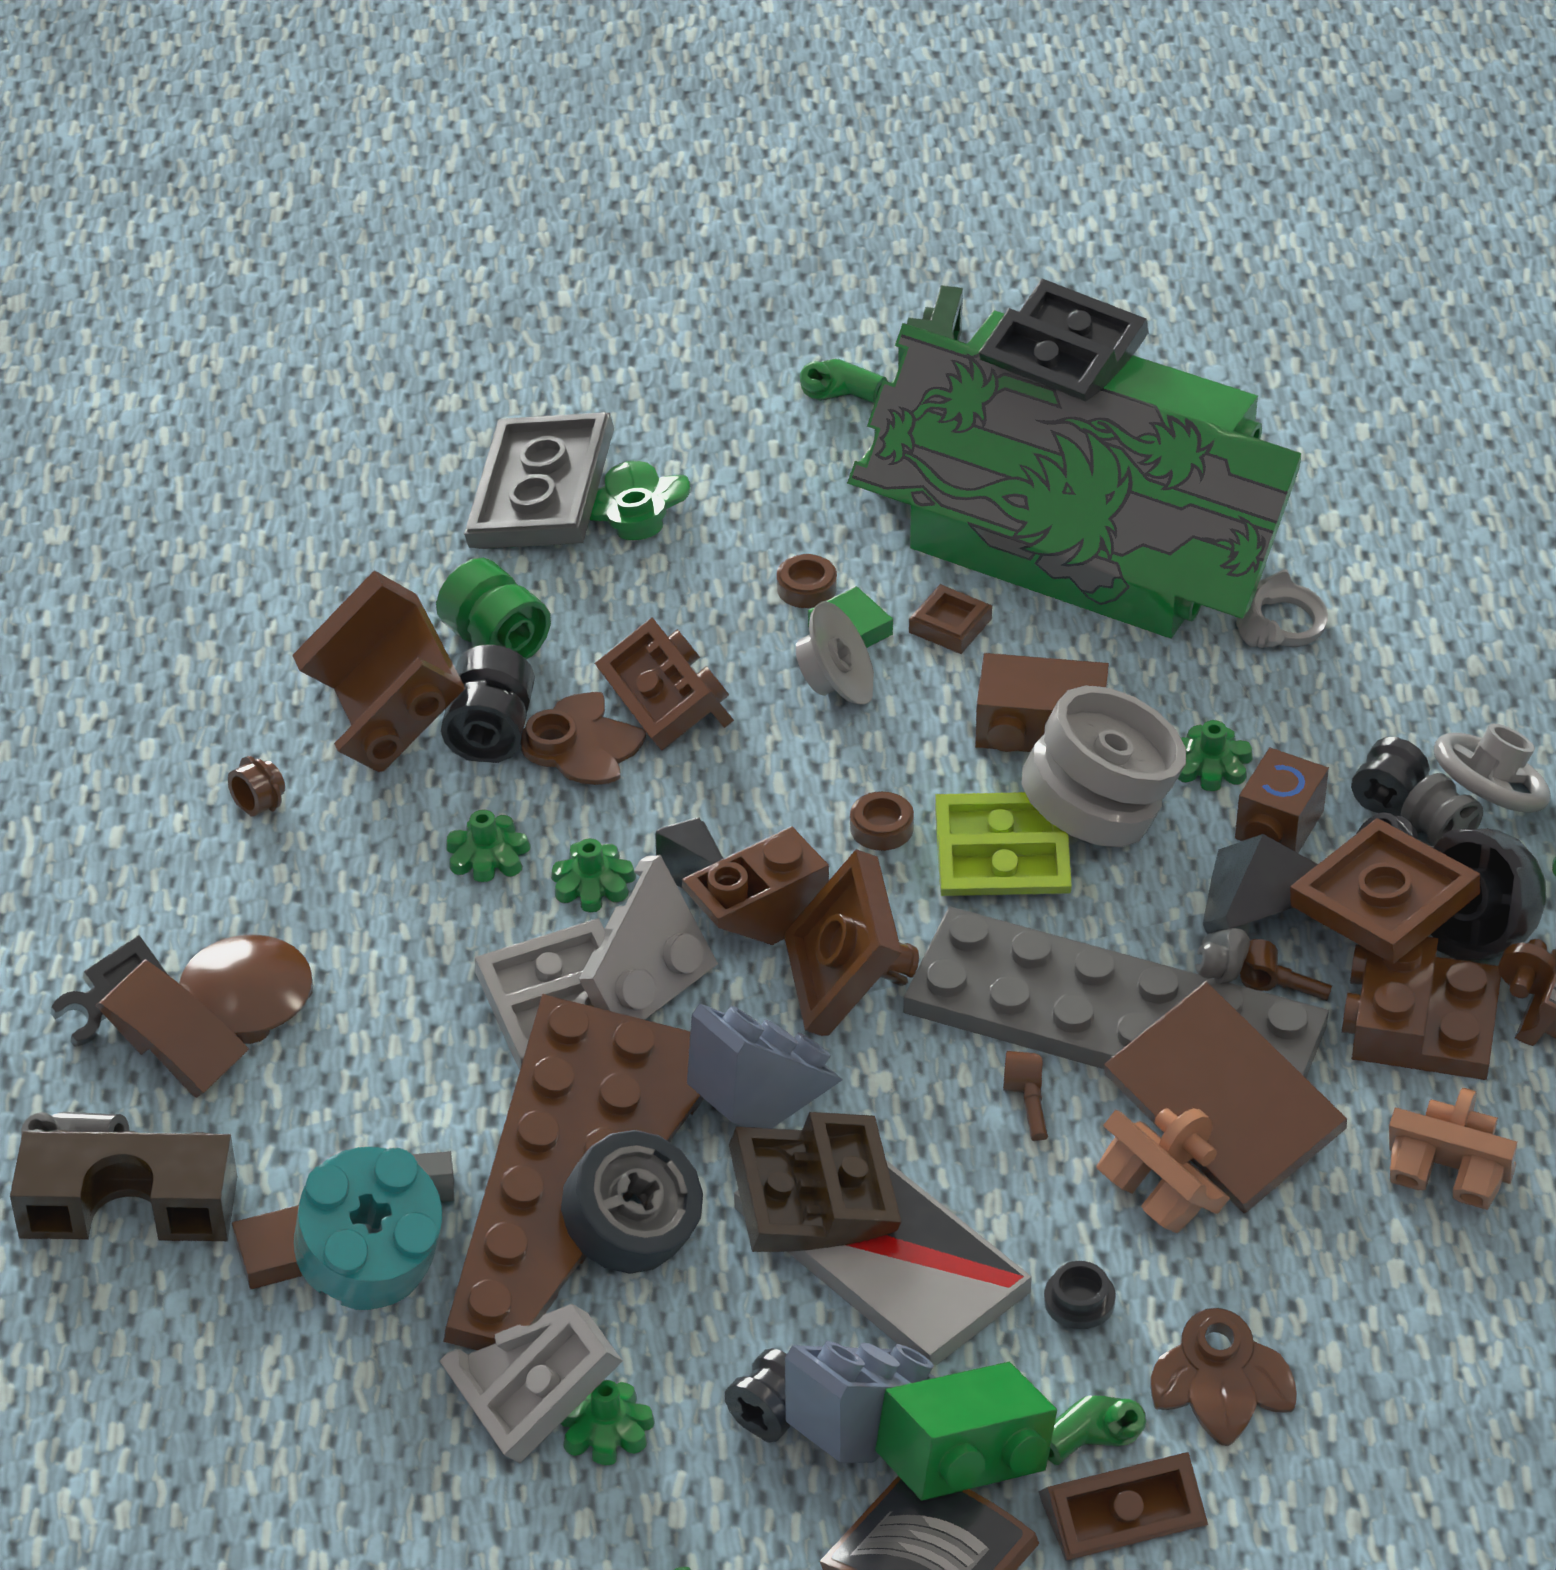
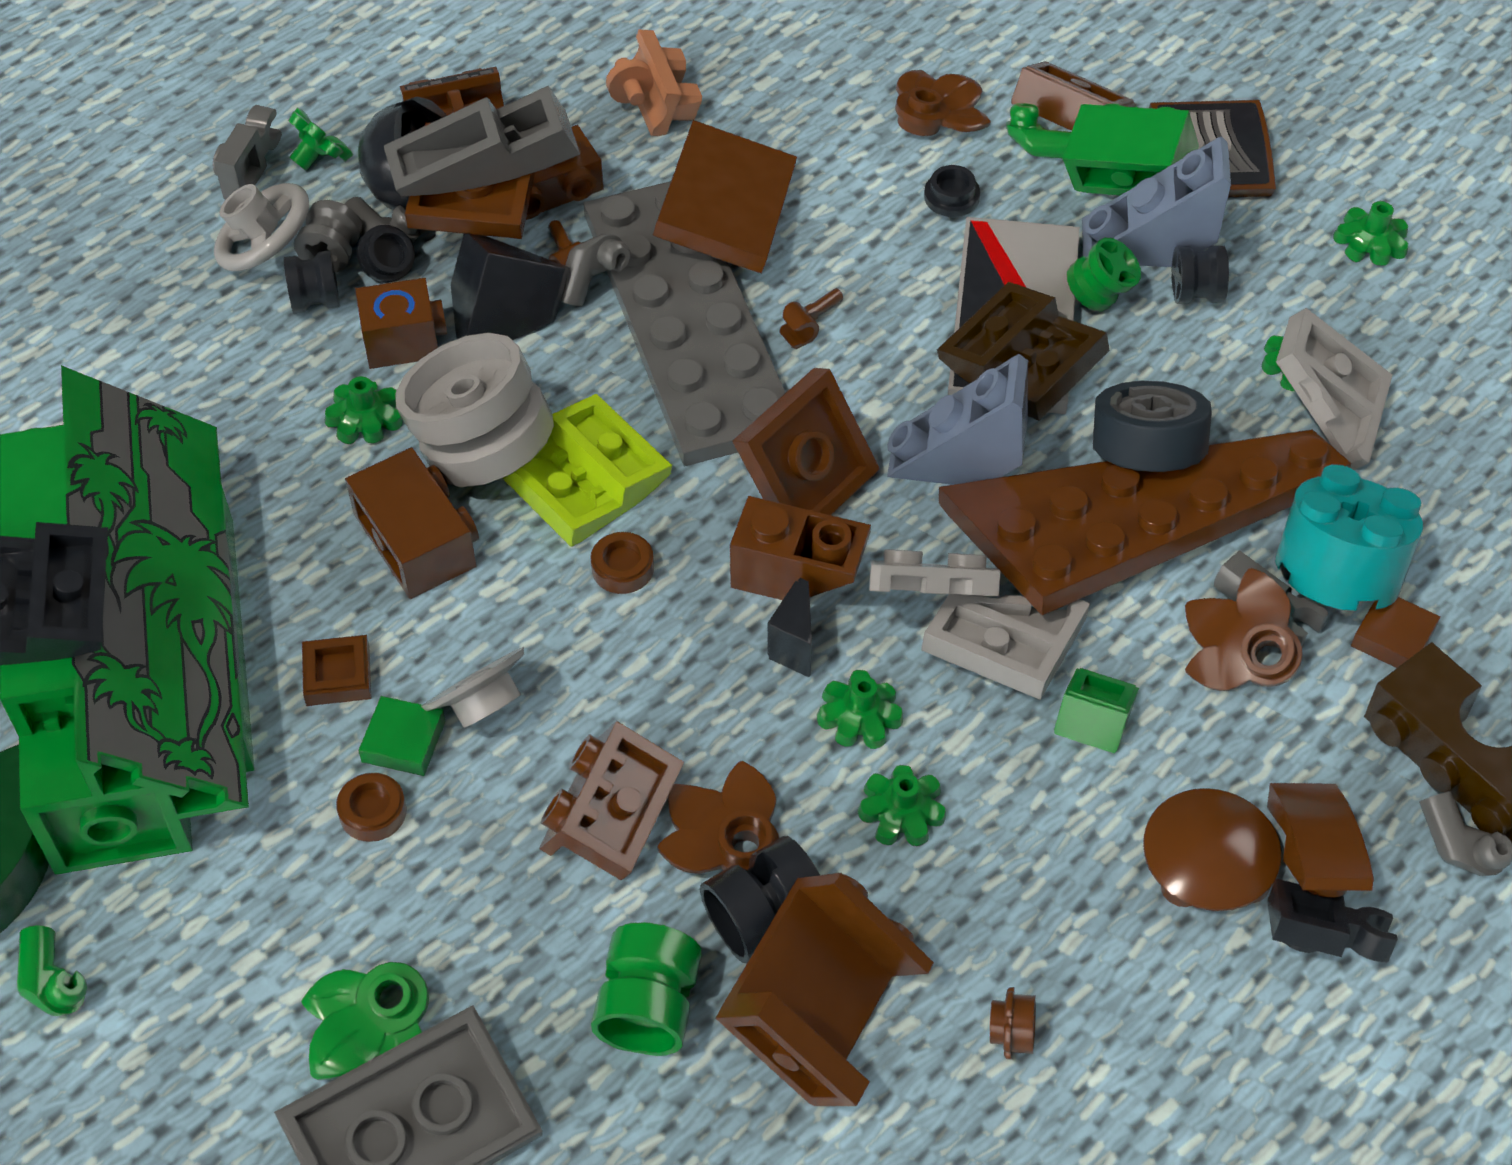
camera: 130 degrees left, 10 degrees up
(376, 1123) = (1238, 630): none -> reddish brown plate
(435, 1010) = (1095, 710): none -> slope
(826, 1305) = (1103, 274): none -> green wheel
(1140, 1150) = (813, 192): nougat hips -> none
(1387, 877) = (482, 146): none -> dark grey slope

